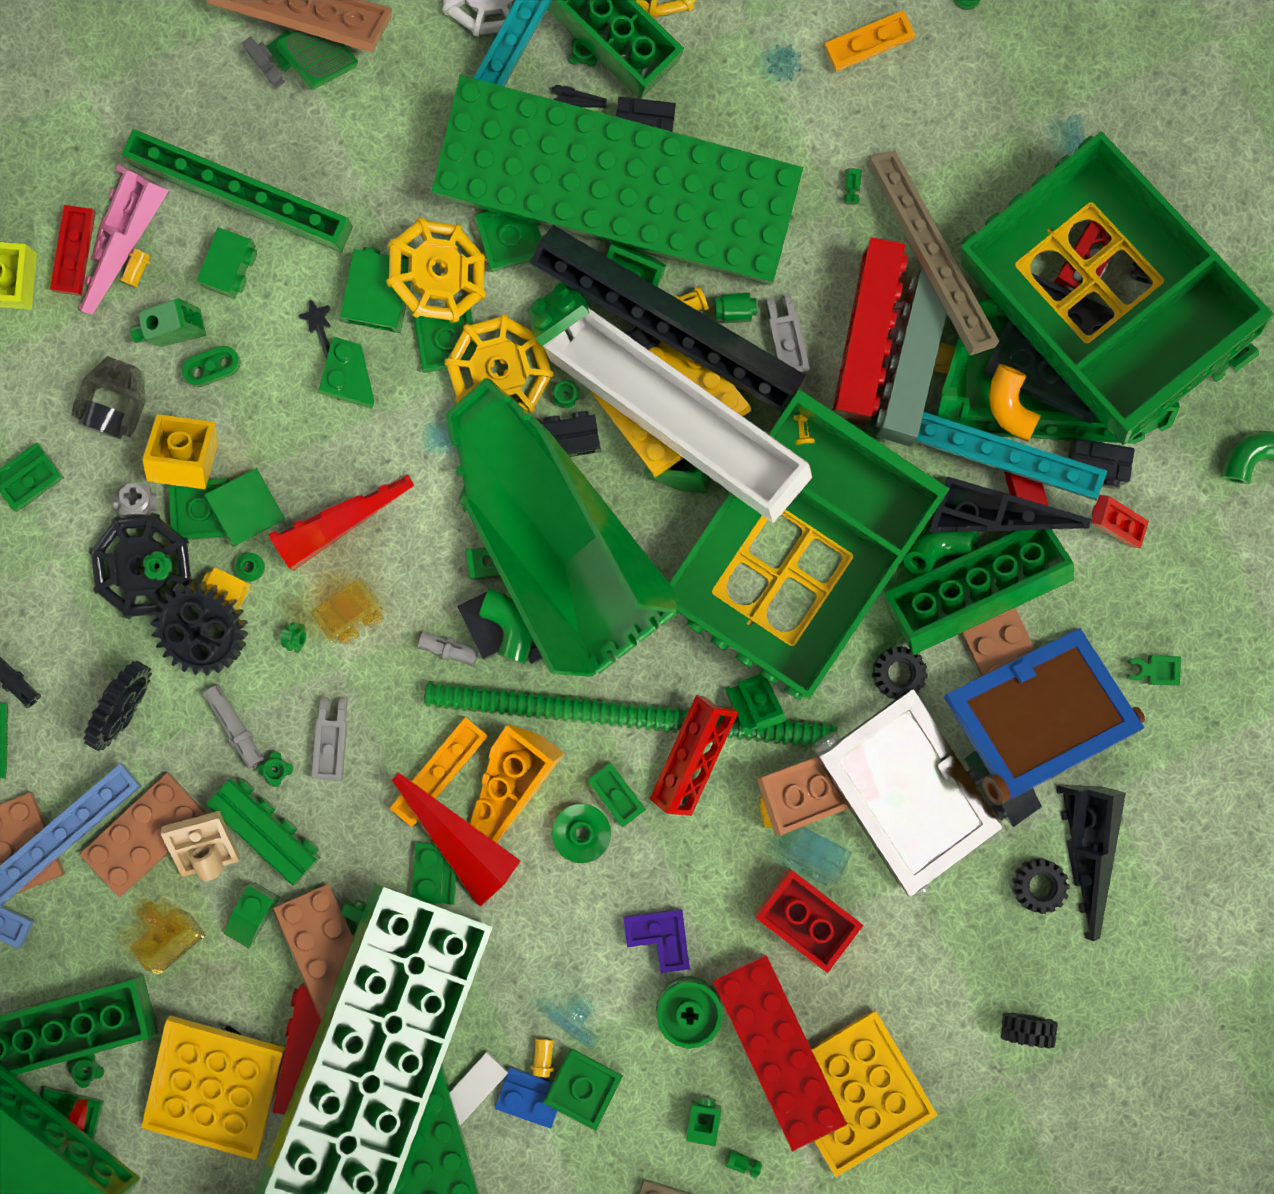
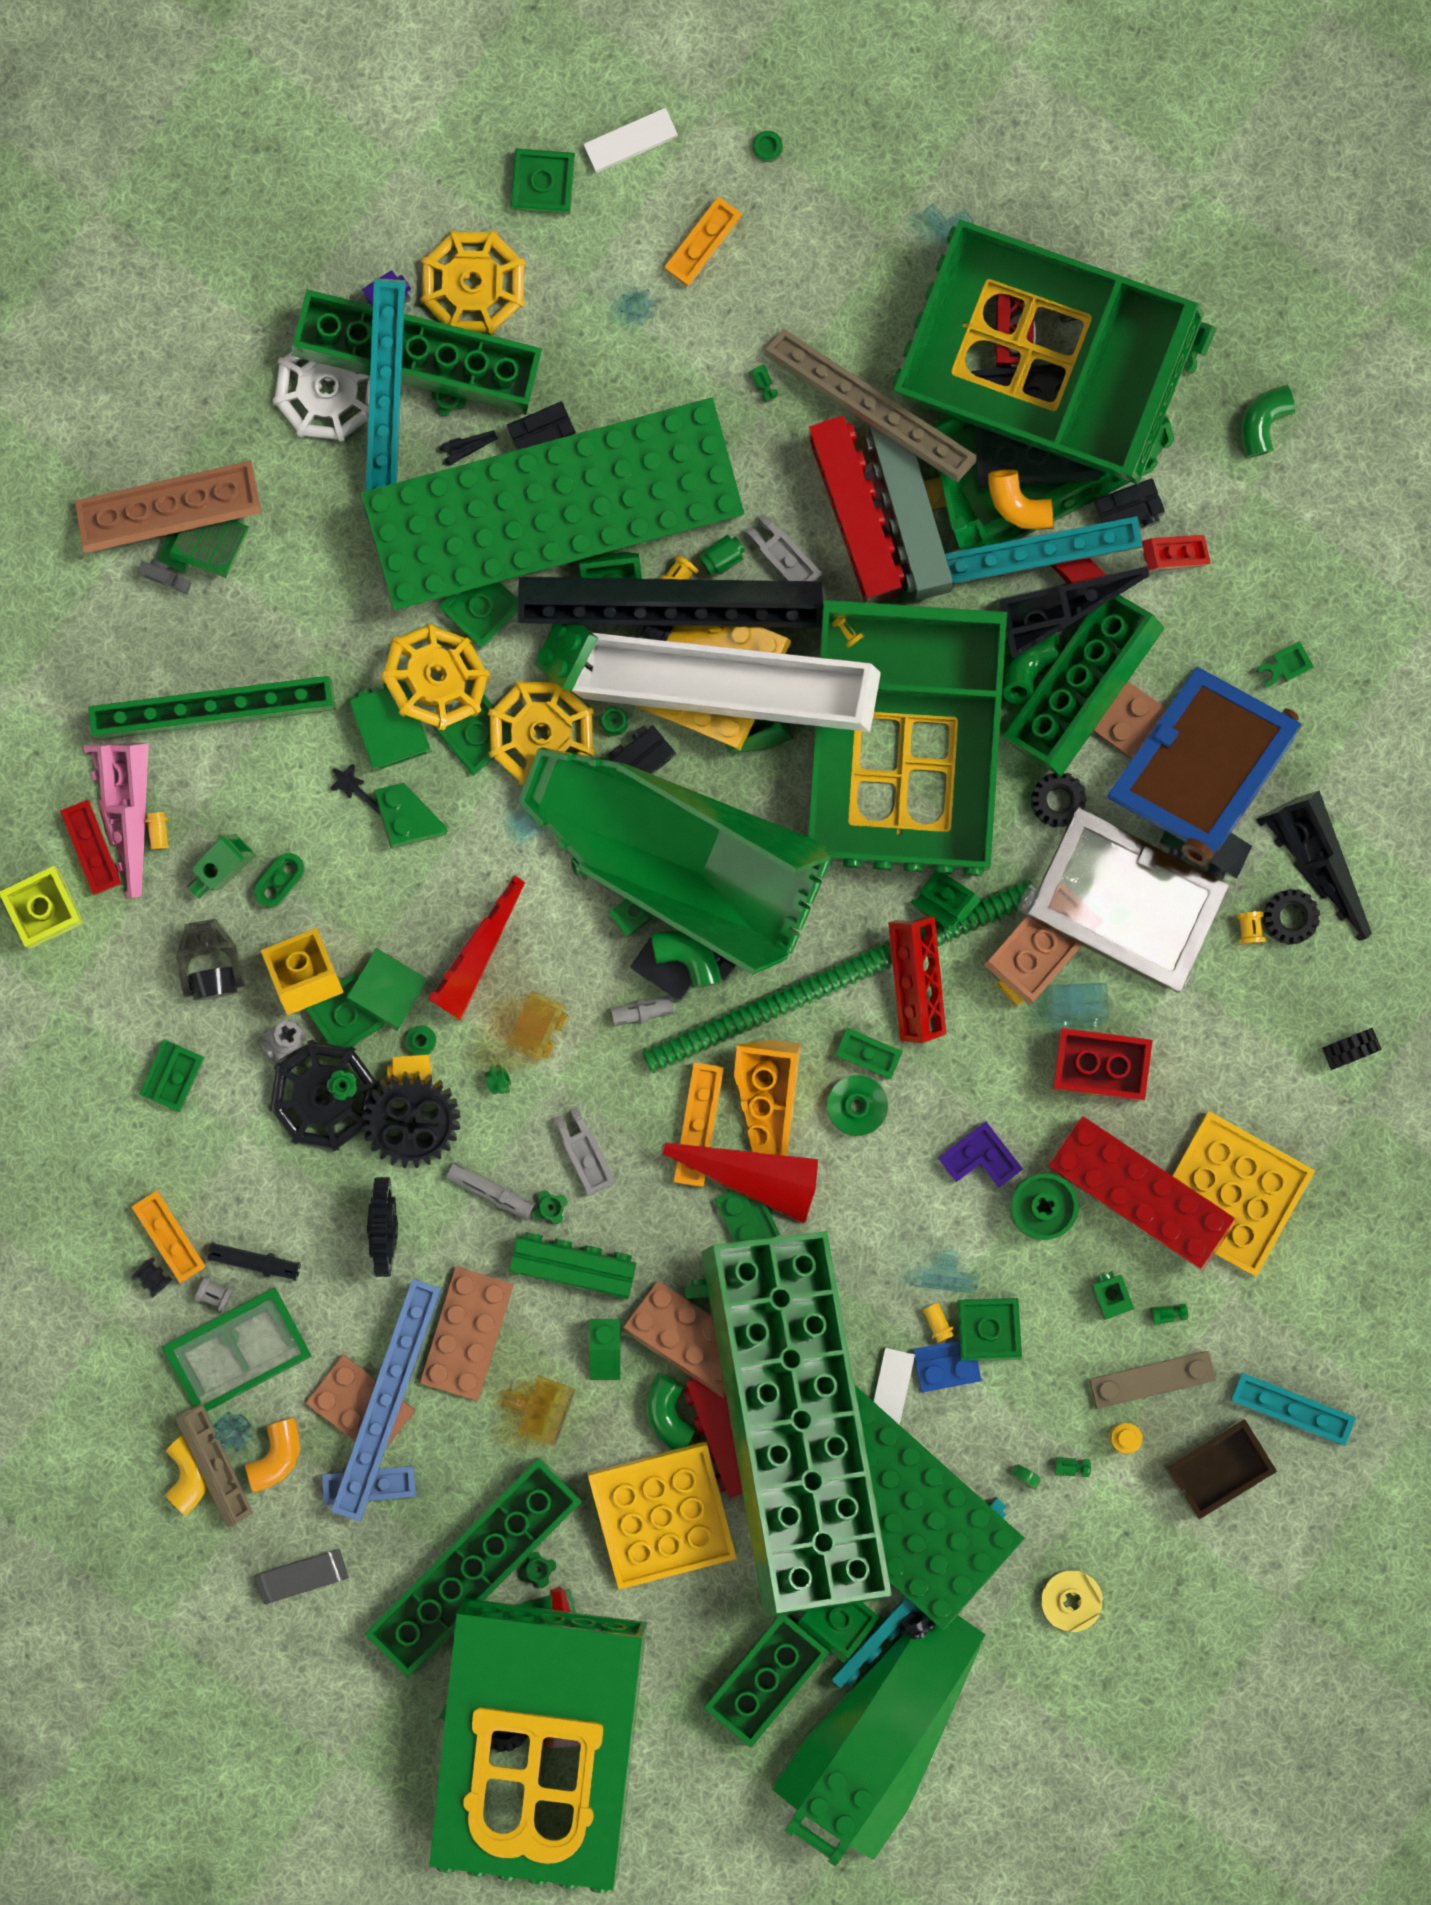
camera: 25 degrees left, 0 degrees up
(201, 845) = (526, 1311): tan plate -> none
(227, 263) = (239, 778): green brick -> none
(265, 998) = (662, 1412): none -> green cylinder
(1000, 875) = (1251, 928): none -> yellow bush

